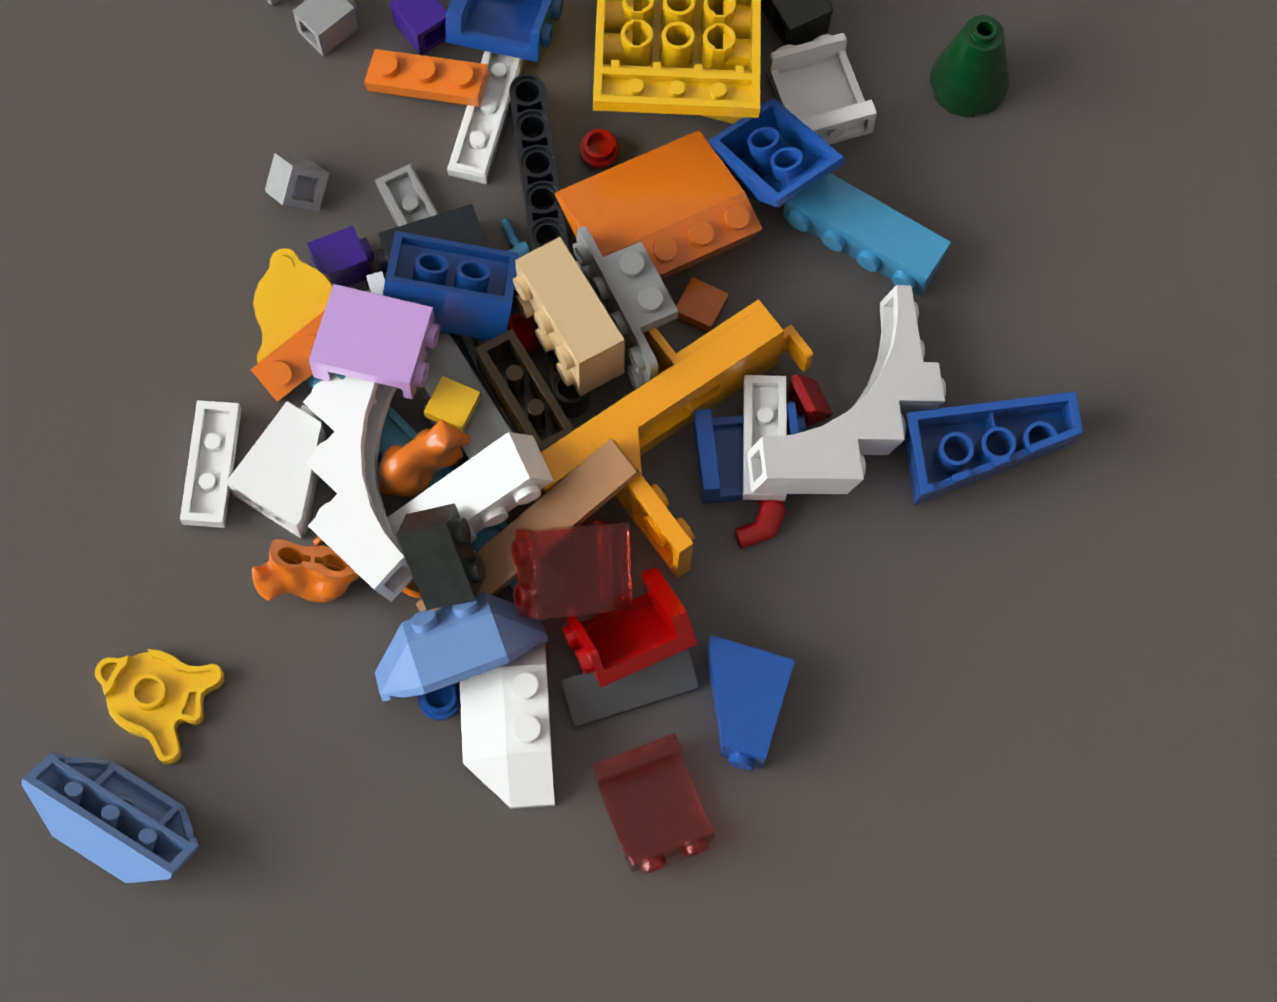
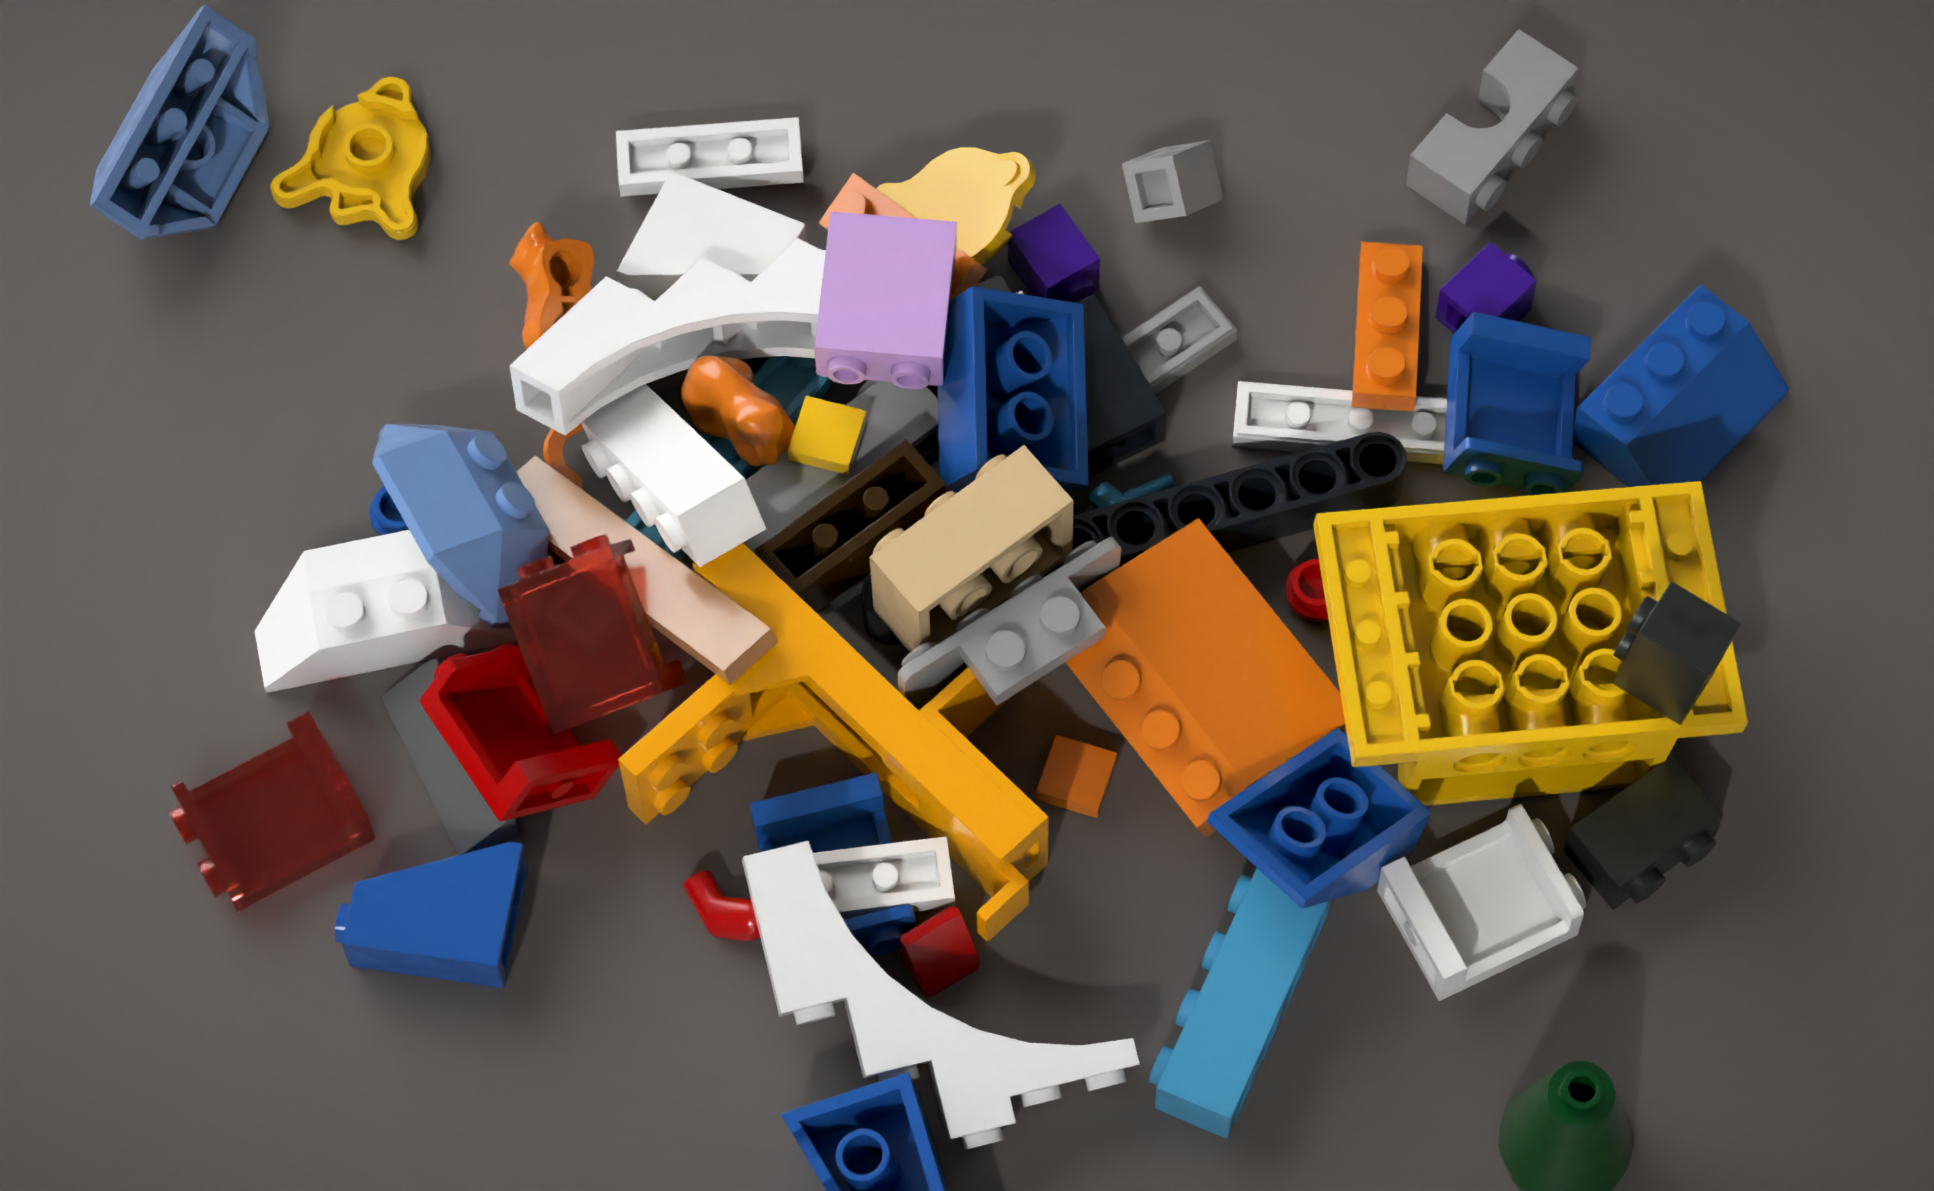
camera: 85 degrees right, 5 degrees down
(441, 556) = (575, 447): pearl dark grey brick -> none

